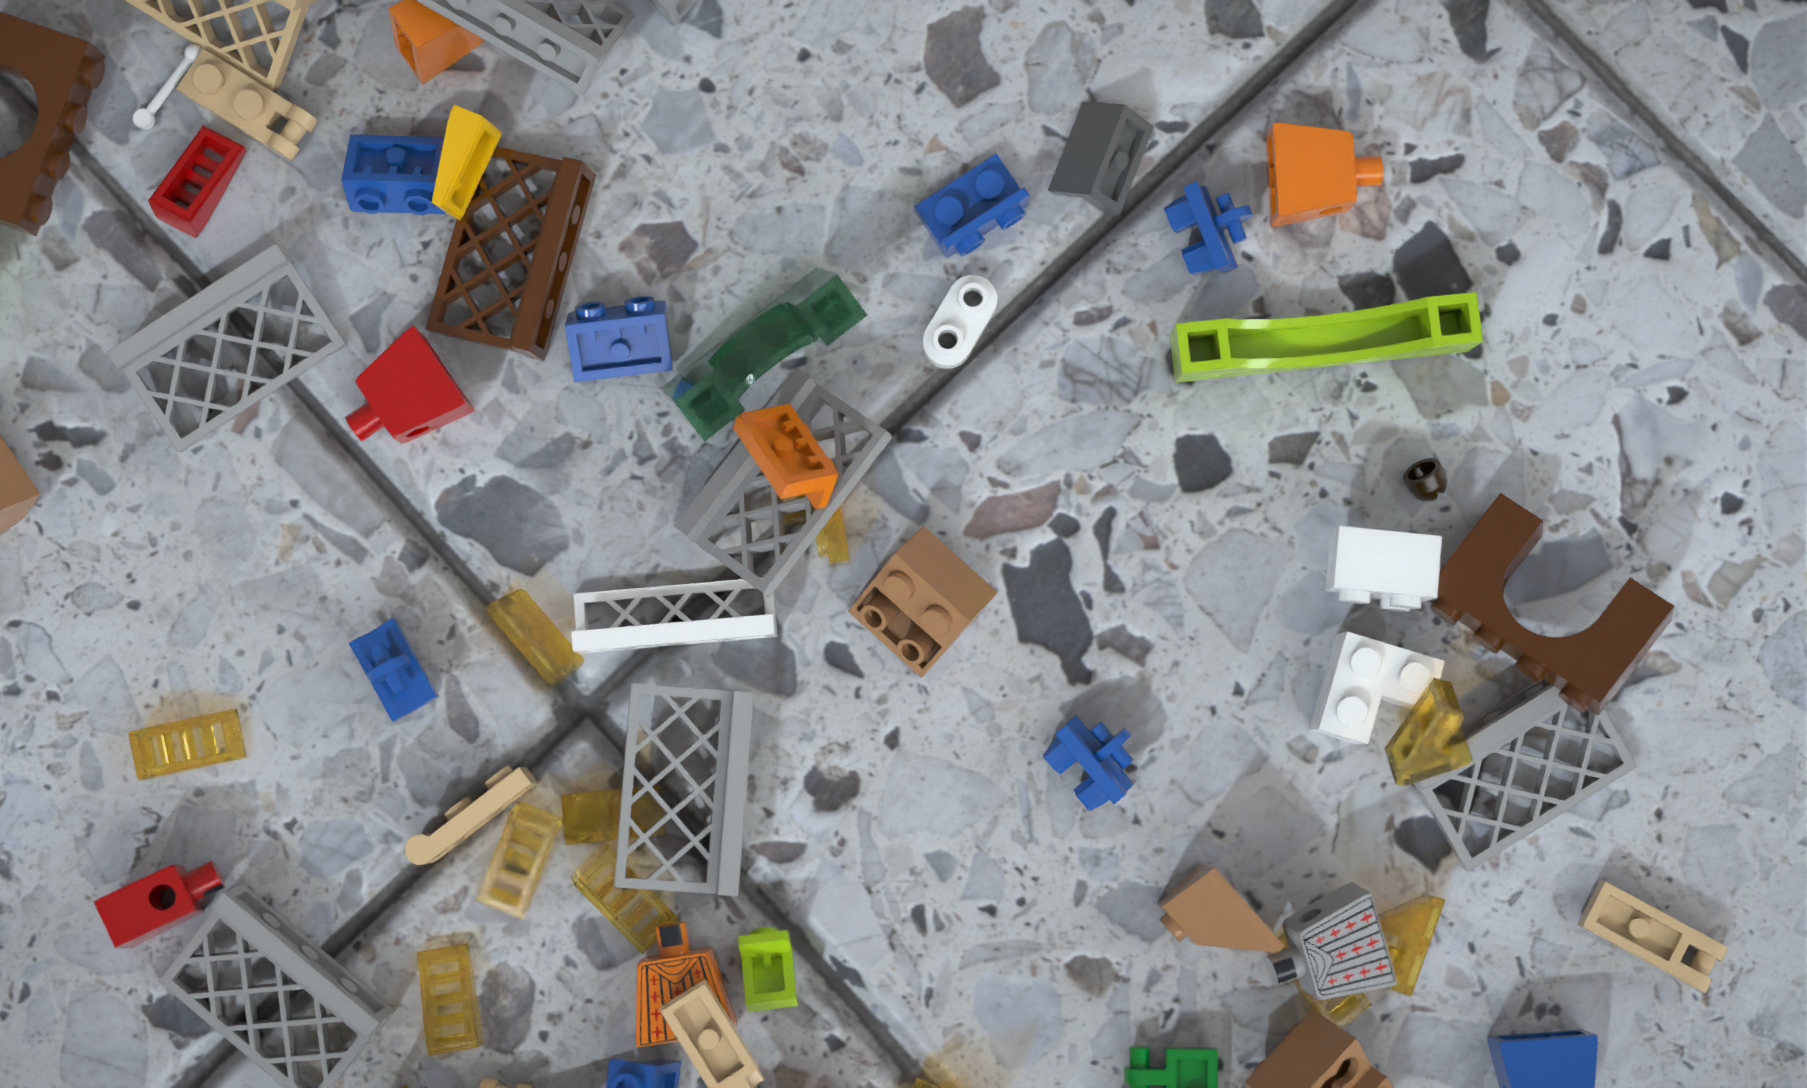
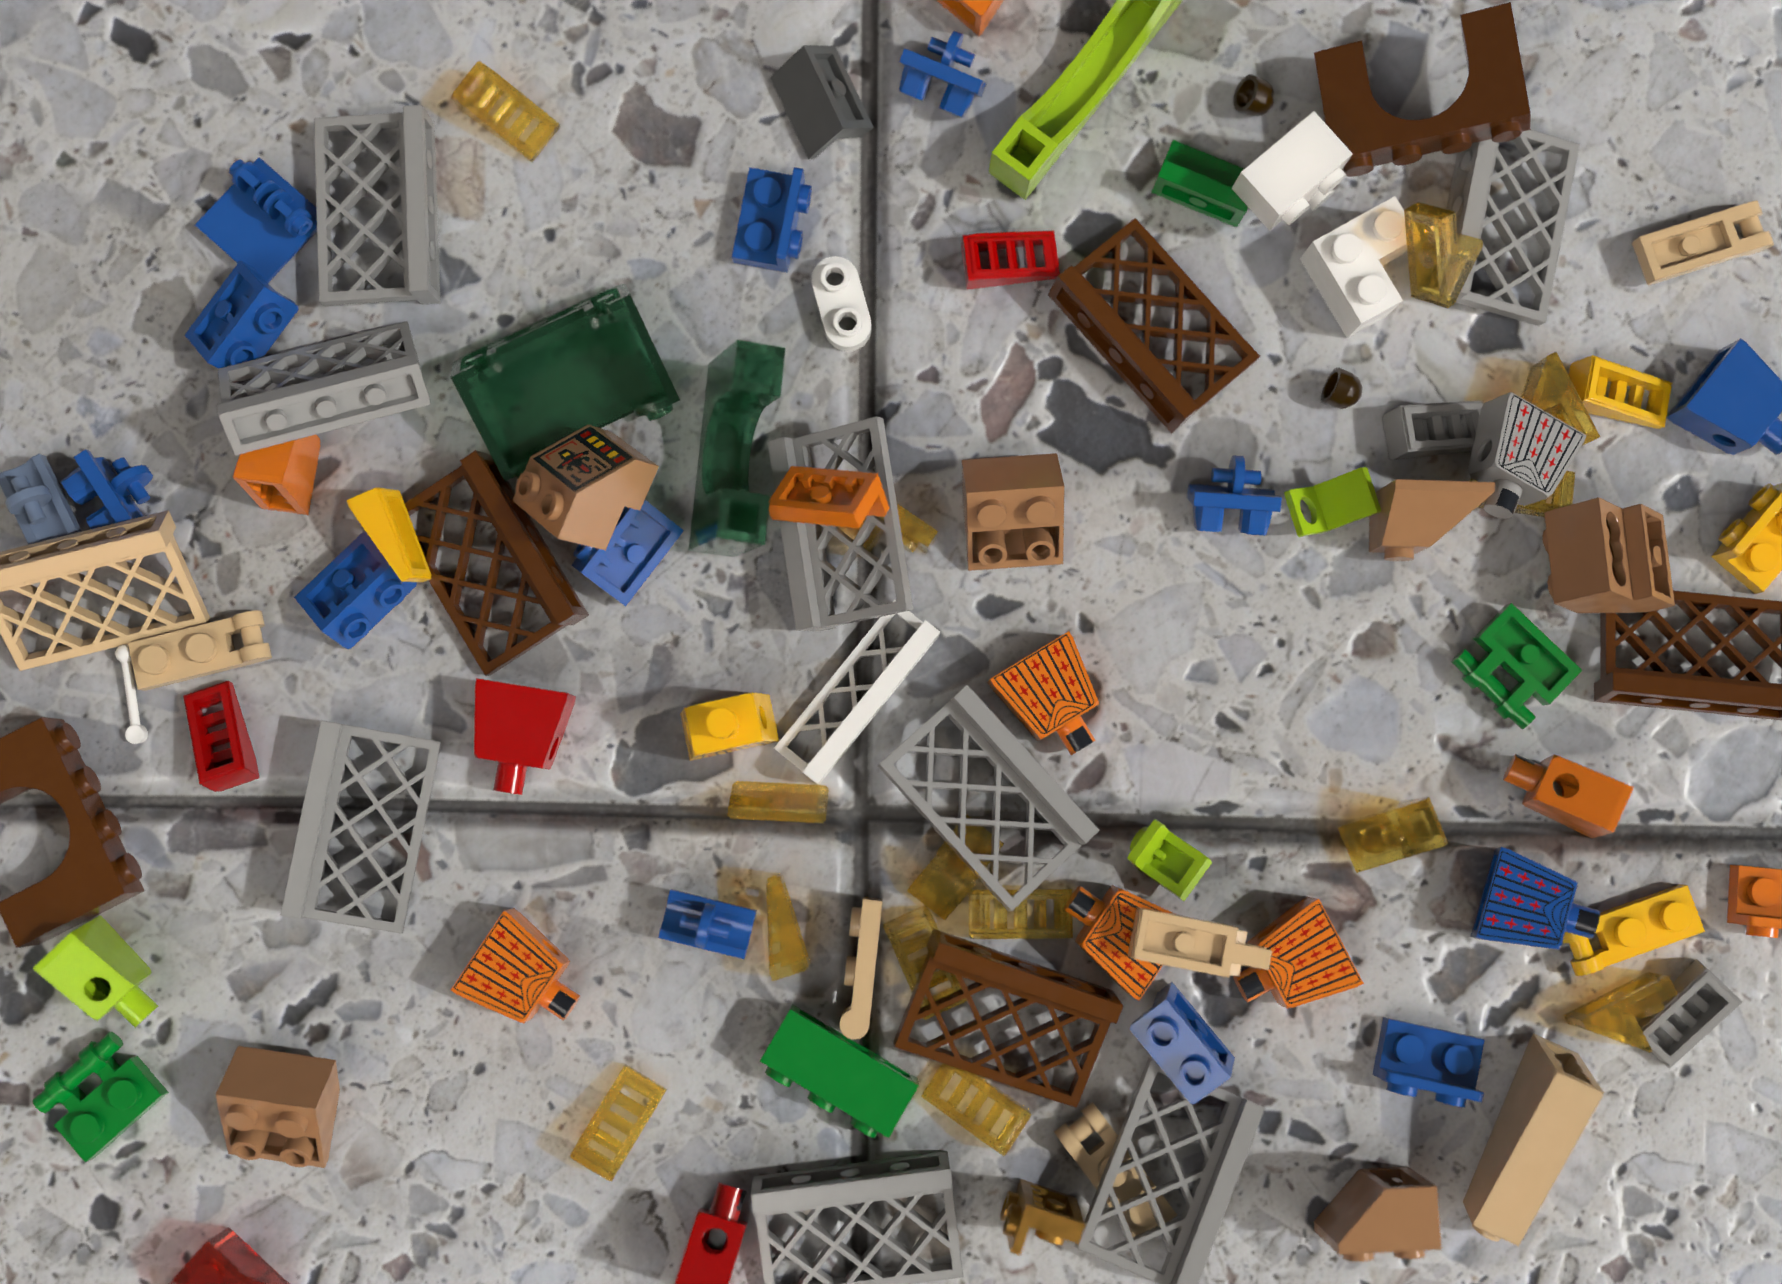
camera: 50 degrees left, 0 degrees up
(228, 564) = (517, 972): none -> orange torso
(375, 872) = (839, 1073): none -> green brick
(436, 741) = (785, 941): none -> clear yellow slope
(558, 545) = (729, 725): none -> yellow torso
(575, 953) = (1020, 978): none -> reddish brown fence
(630, 265) = (584, 485): none -> medium nougat piece
(697, 171) = (563, 374): none -> clear green windscreen
(809, 761) = (1050, 693): none -> orange torso
(1115, 388) = (991, 242): none -> red slope
(1130, 570) = (1119, 340): none -> reddish brown fence
(1162, 839) = (1333, 502): none -> lime bracket
(1261, 763) = (1341, 389): none -> dark brown hinge
(1272, 837) = (1406, 431): none -> light grey slope
(1319, 500) = (1200, 183): none -> green panel
(1450, 953) = (1591, 379): none -> yellow slope

